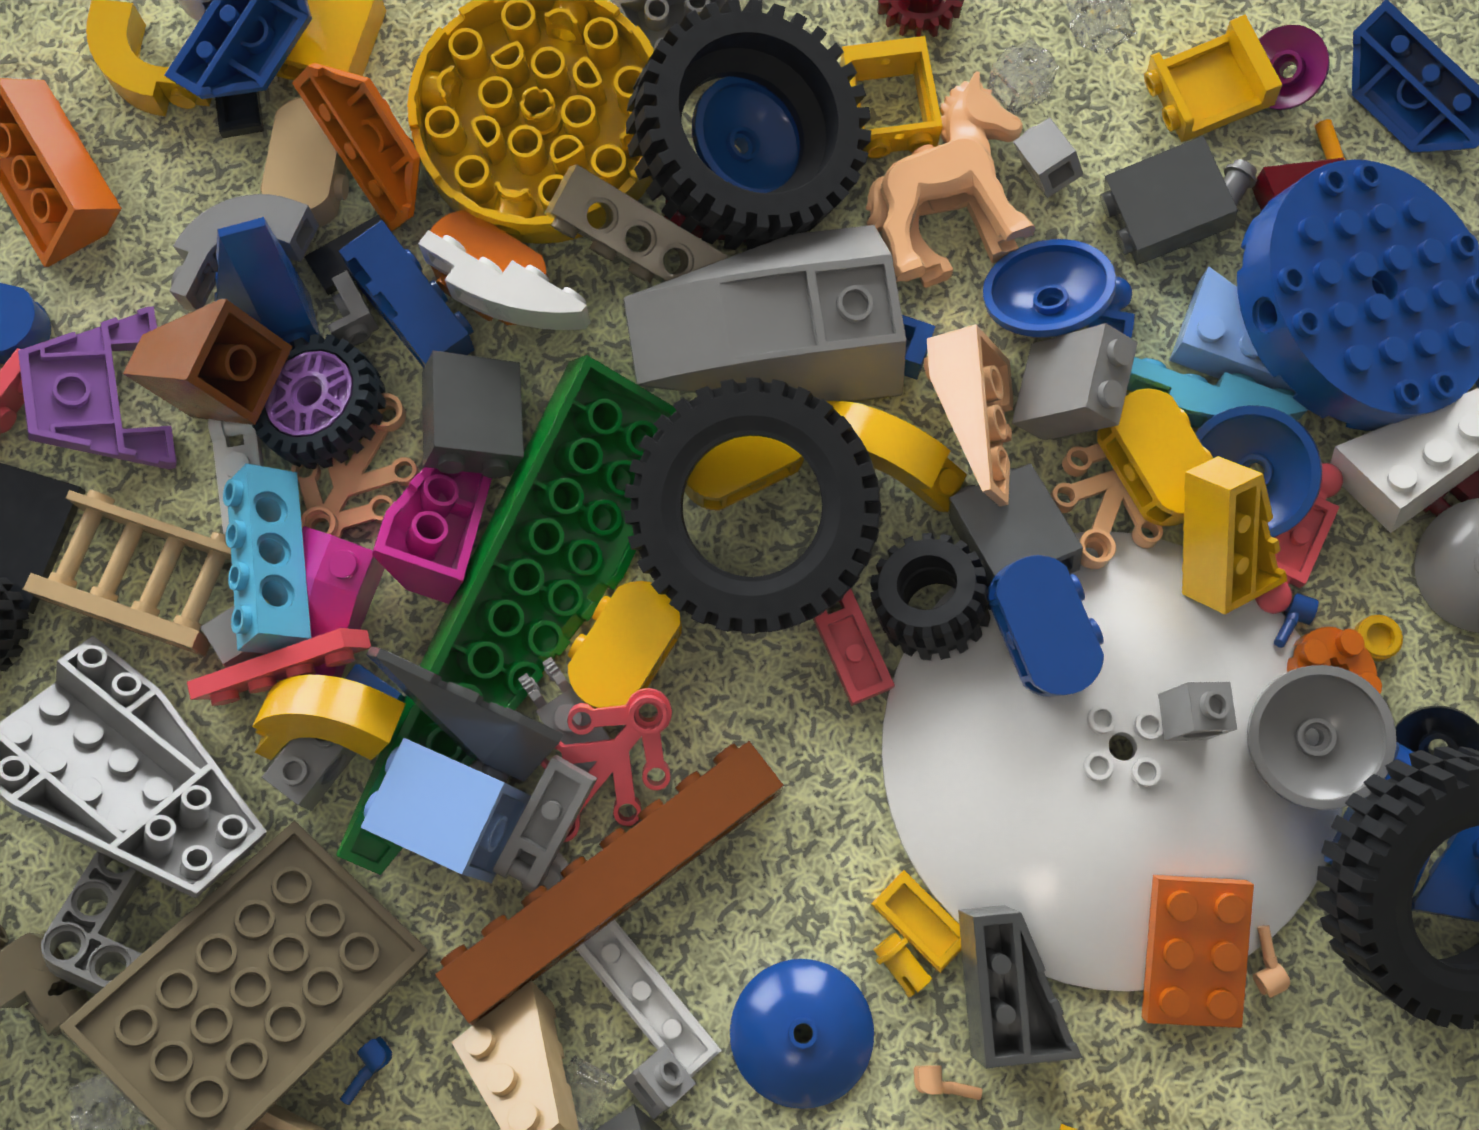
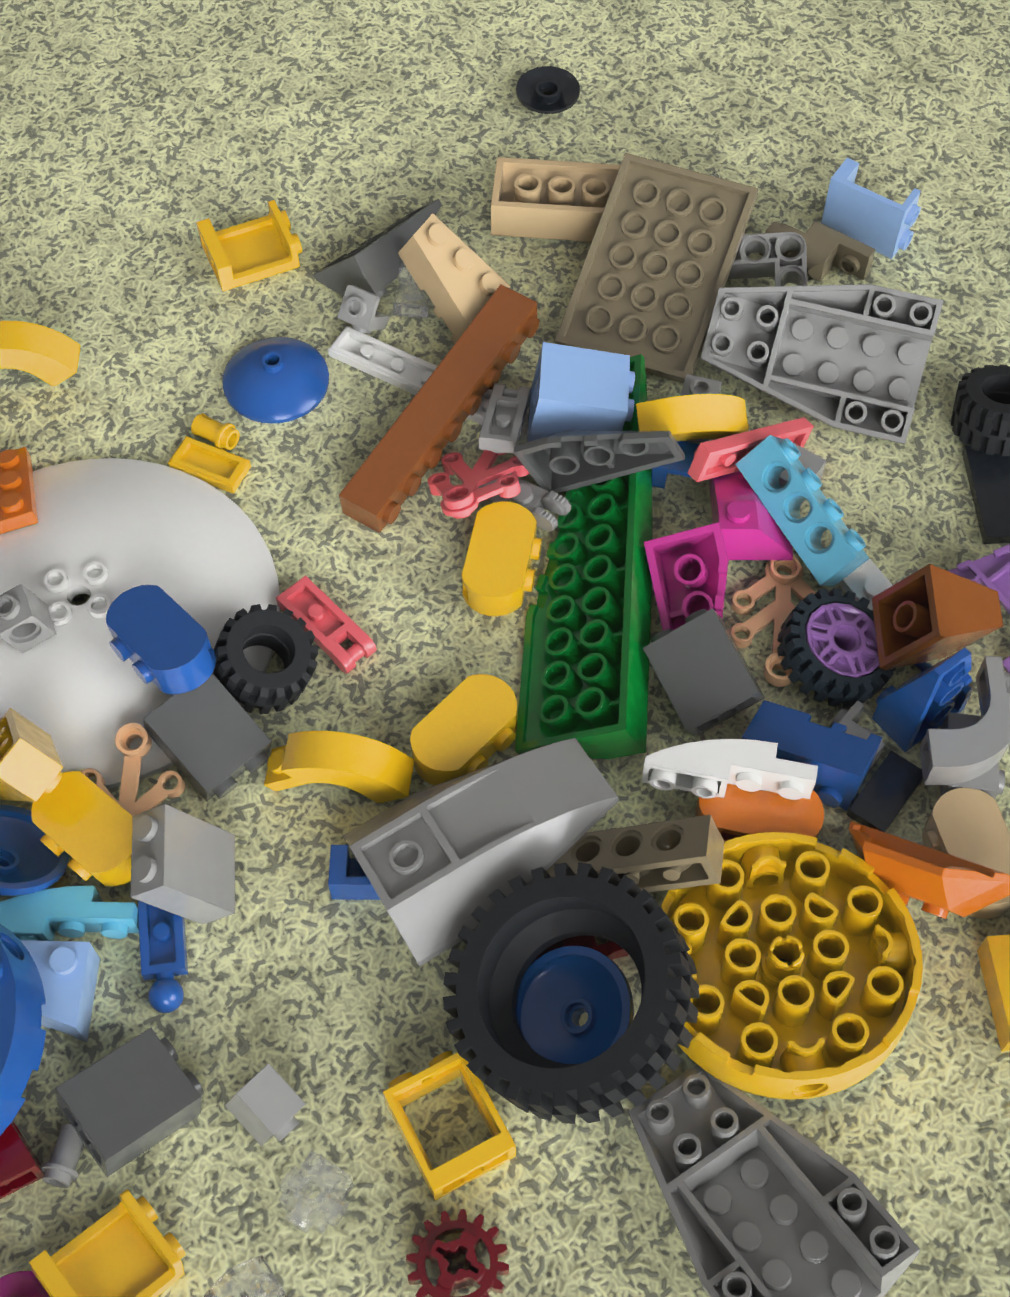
camera: 160 degrees right, 15 degrees down
(143, 614) = (914, 463): tan fence -> none
(375, 1056) = (562, 281): blue hand -> none
(847, 517) = (431, 710): black tyre -> none
(929, 1081) = (173, 374): light nougat hand -> none
(948, 180) = (363, 1048): light nougat animal -> none
(975, 393) = (277, 830): light nougat wedge -> none
(1007, 993) = (128, 424): dark grey wedge -> none
(1049, 288) = (259, 954): blue dish -> none

